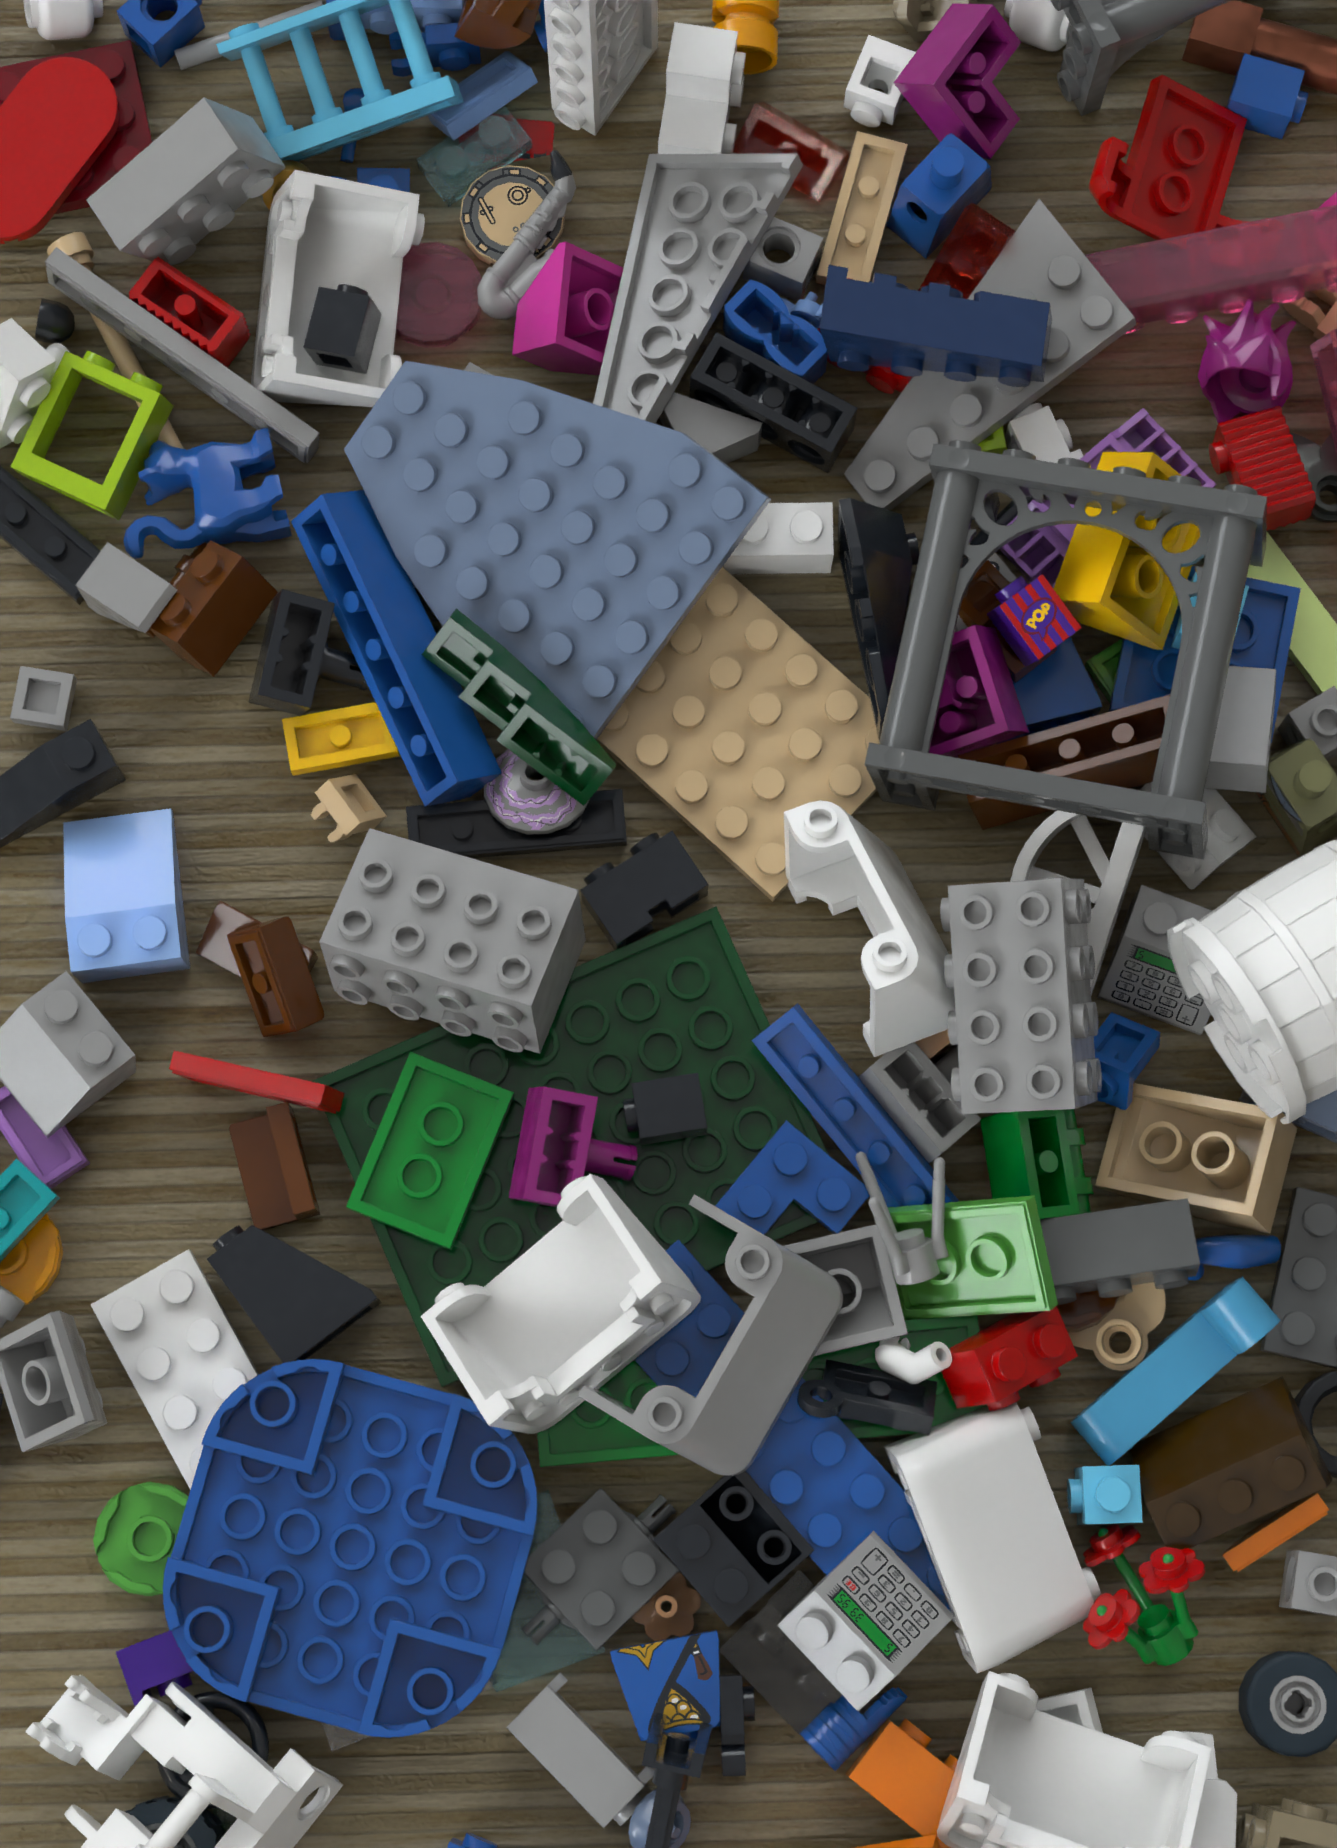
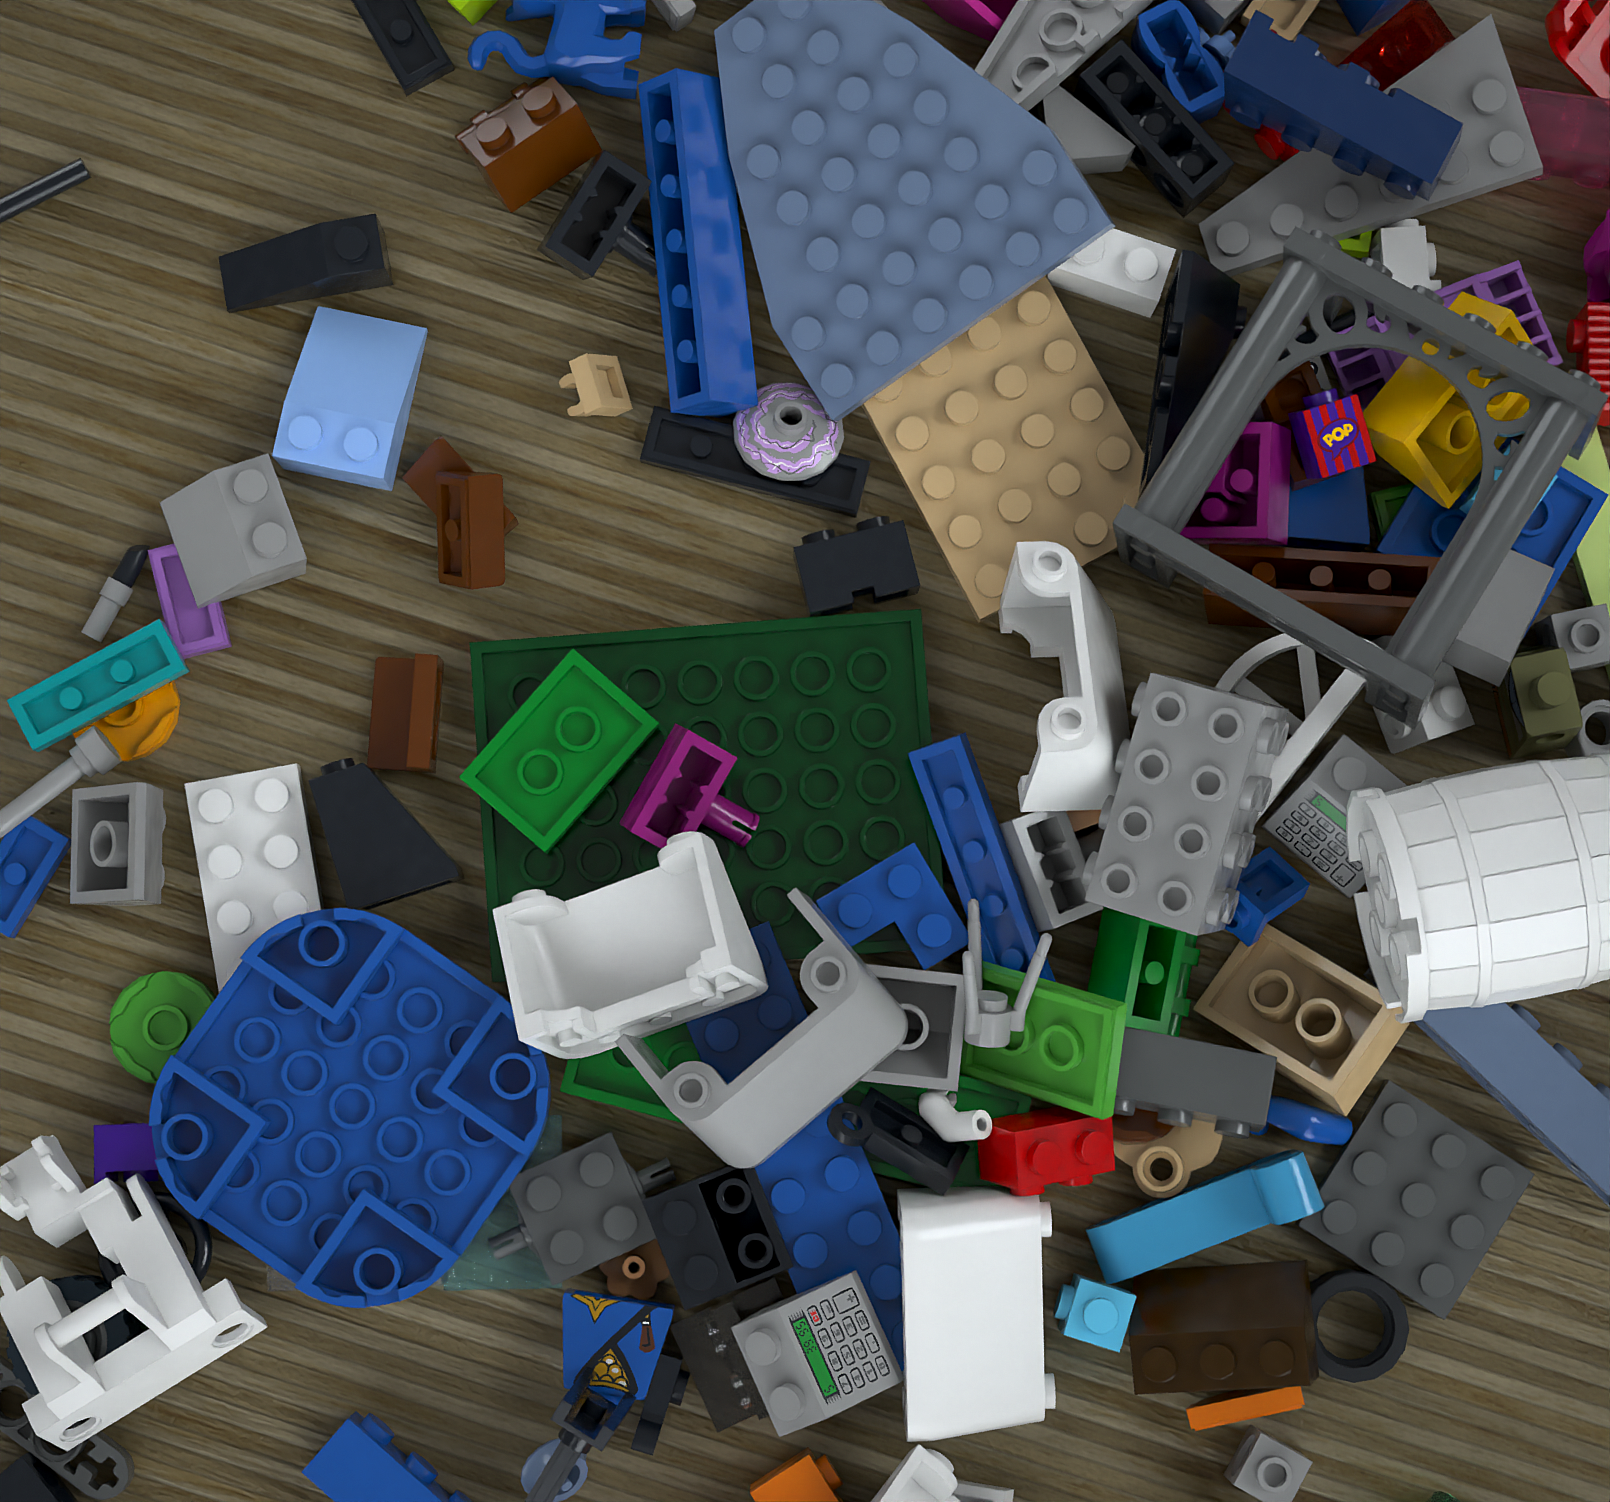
camera: 15 degrees right, 5 degrees up
(43, 698) = (339, 177): light grey plate -> none
(124, 589) = (451, 96): light grey slope -> none
(256, 1082) = (415, 625): red tile -> none
(337, 738) = (609, 315): yellow plate -> none
(453, 941) = (651, 555): light grey brick -> none
(522, 706) = (796, 341): dark green slope -> none
(579, 1756) = (499, 1379): light grey brick -> none
(666, 1109) = (800, 791): black brick -> none
(843, 1729) = (756, 1445): blue hinge -> none
(1162, 1632) = (1101, 1462): plant -> none

